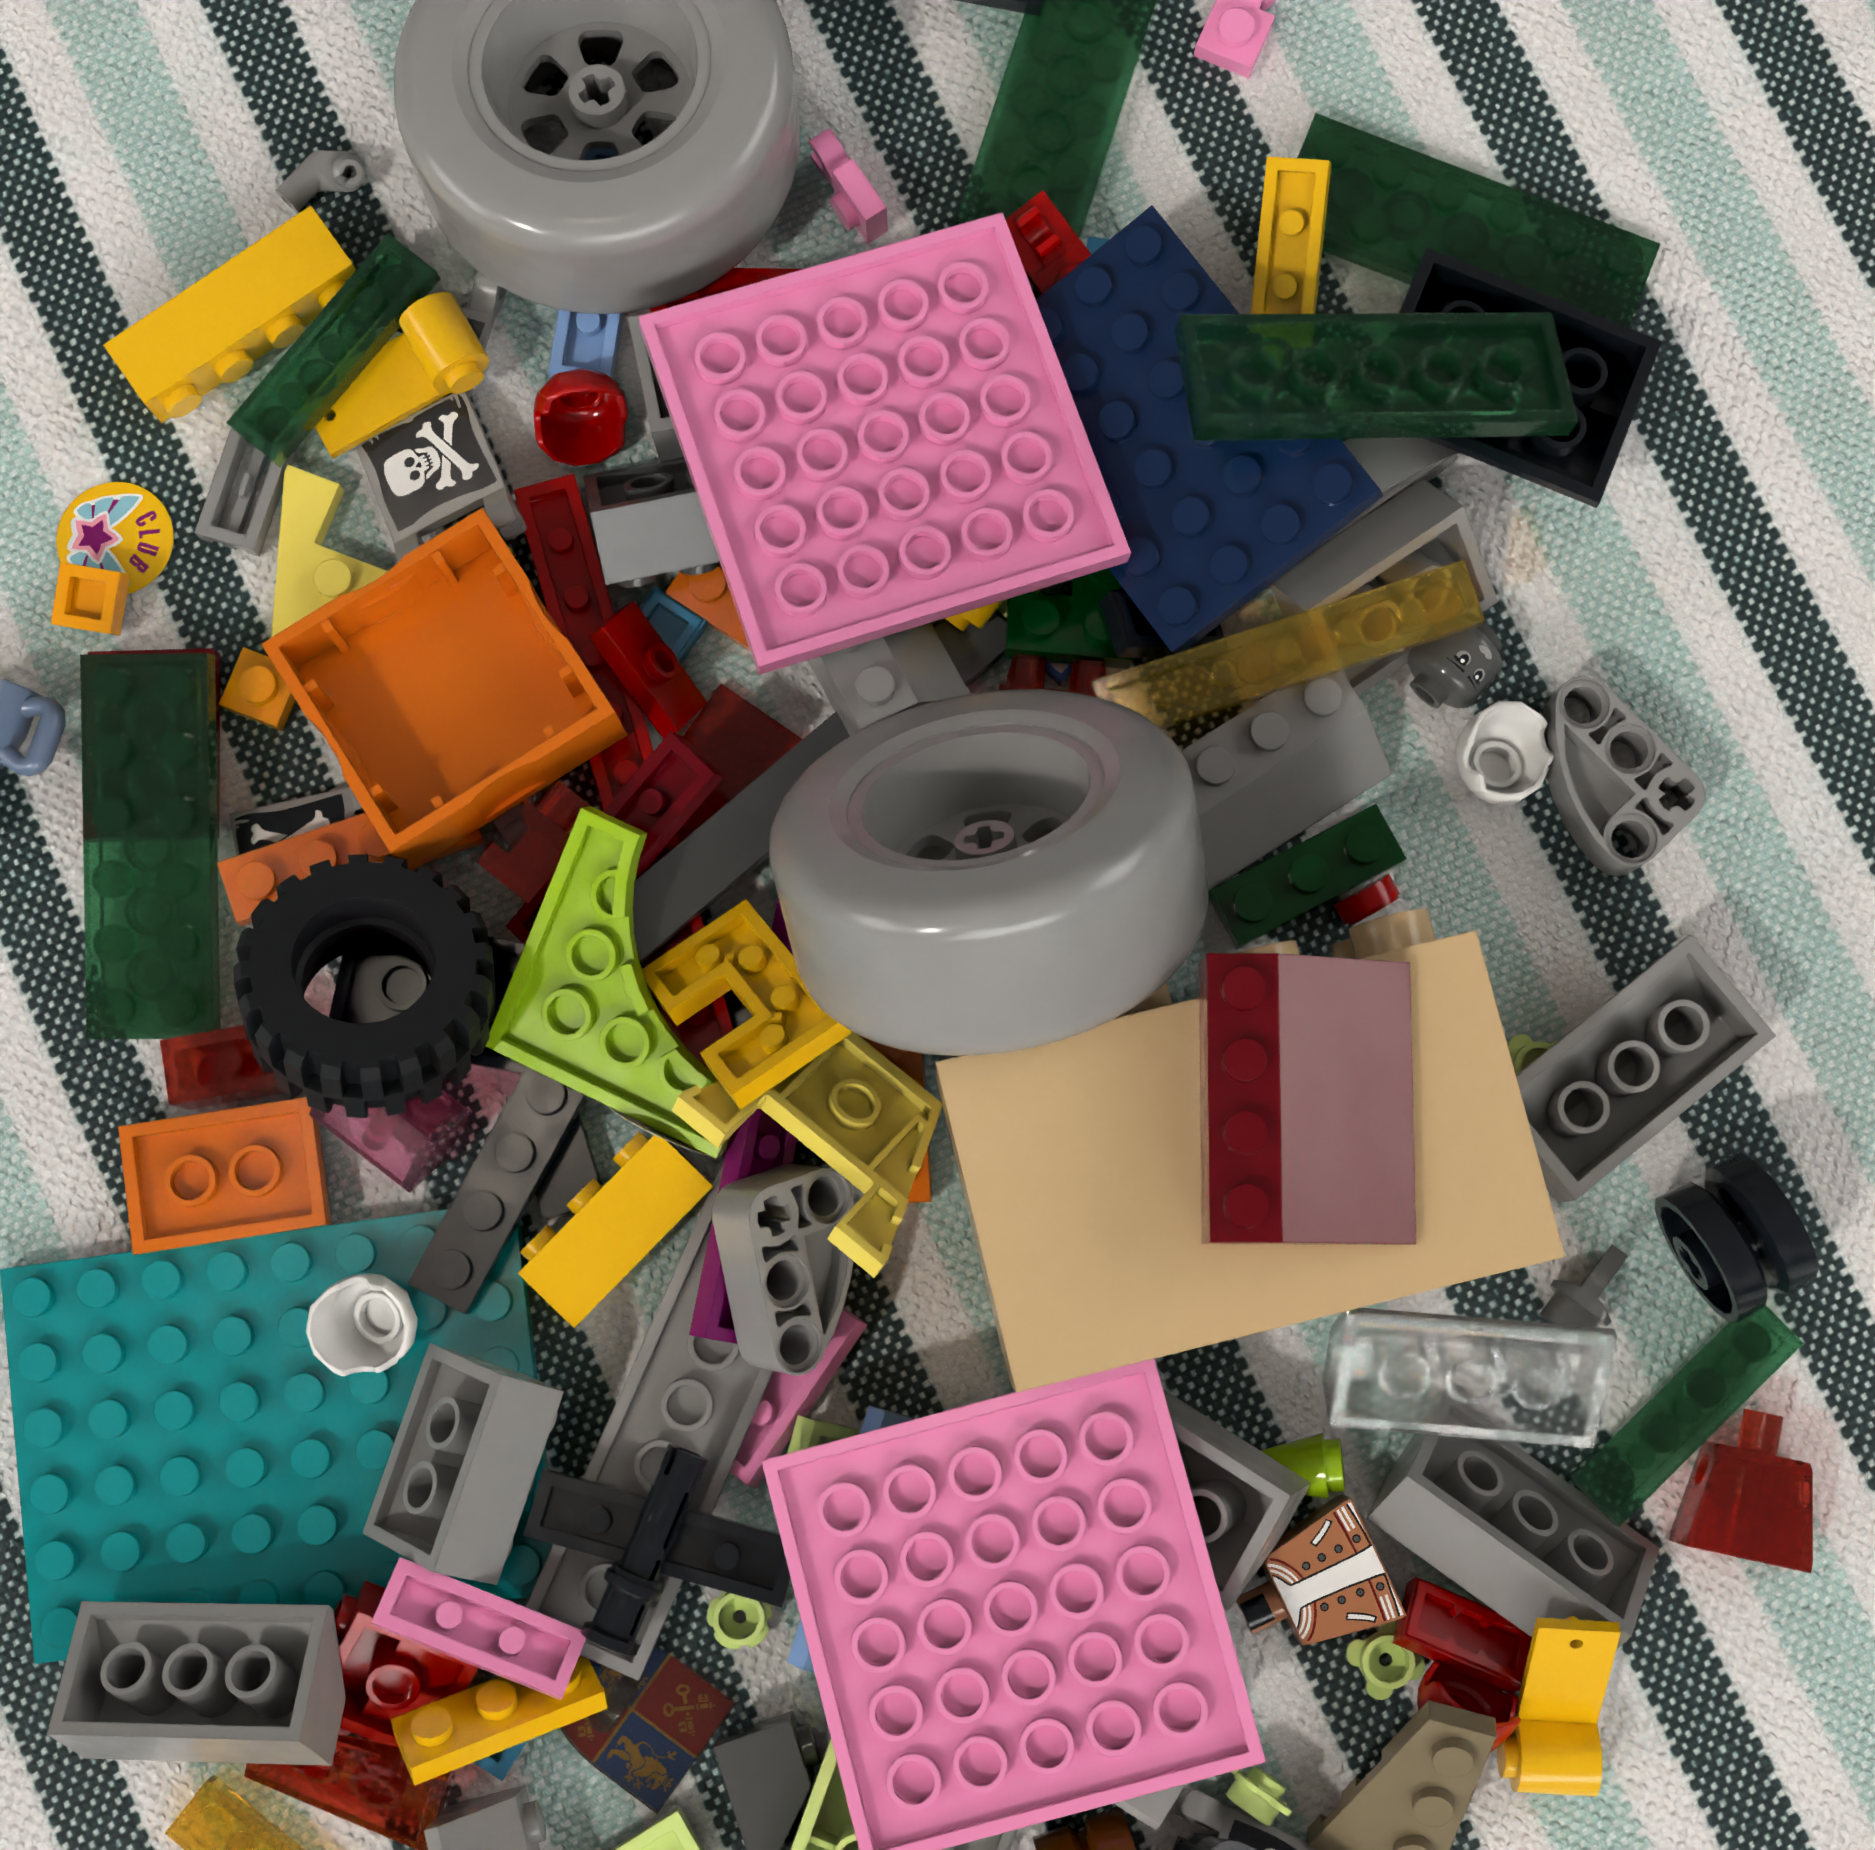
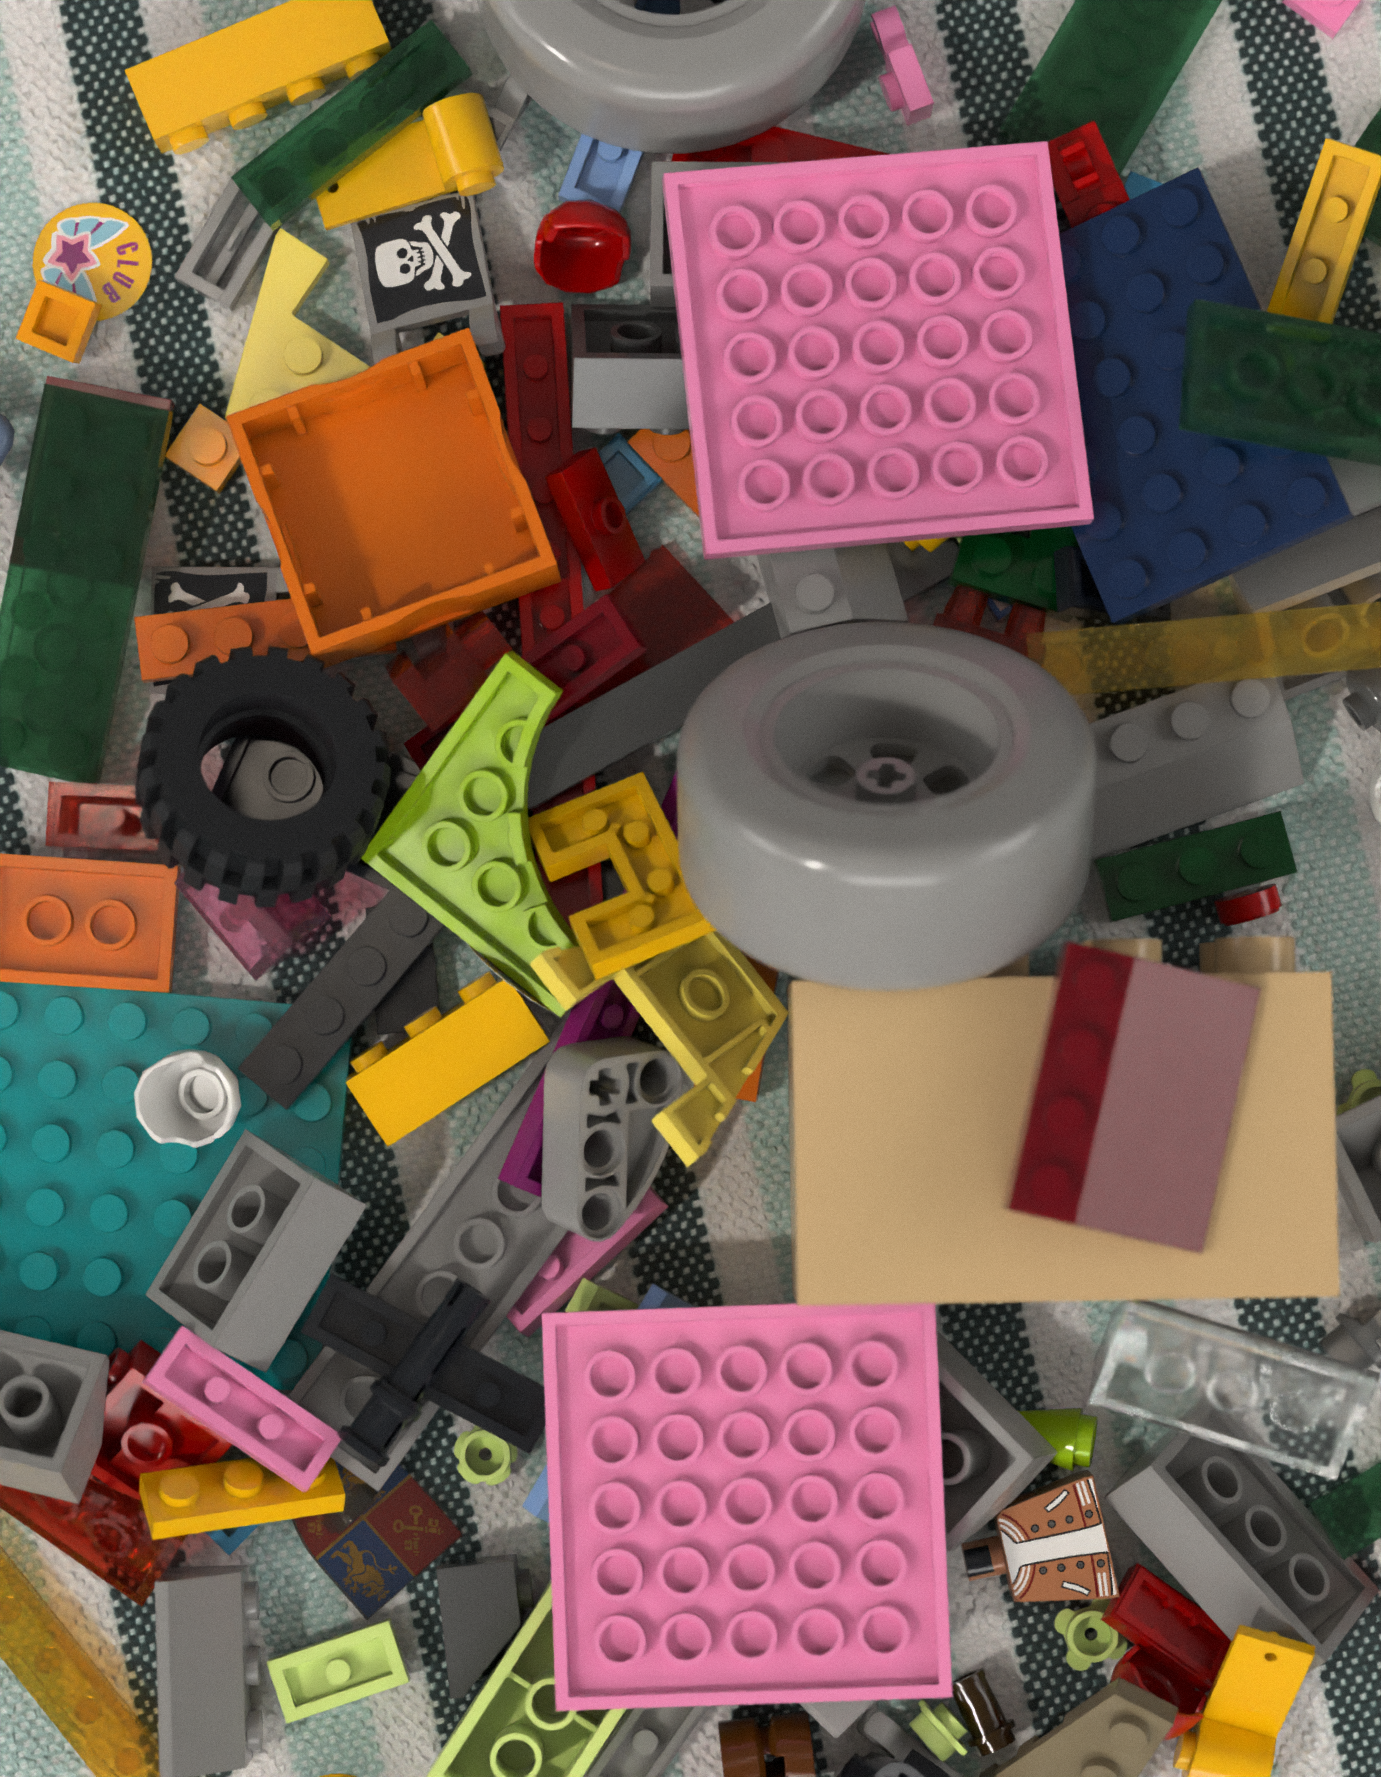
camera: 15 degrees right, 5 degrees up
(1297, 1766) = (982, 1713): none -> dark brown pin

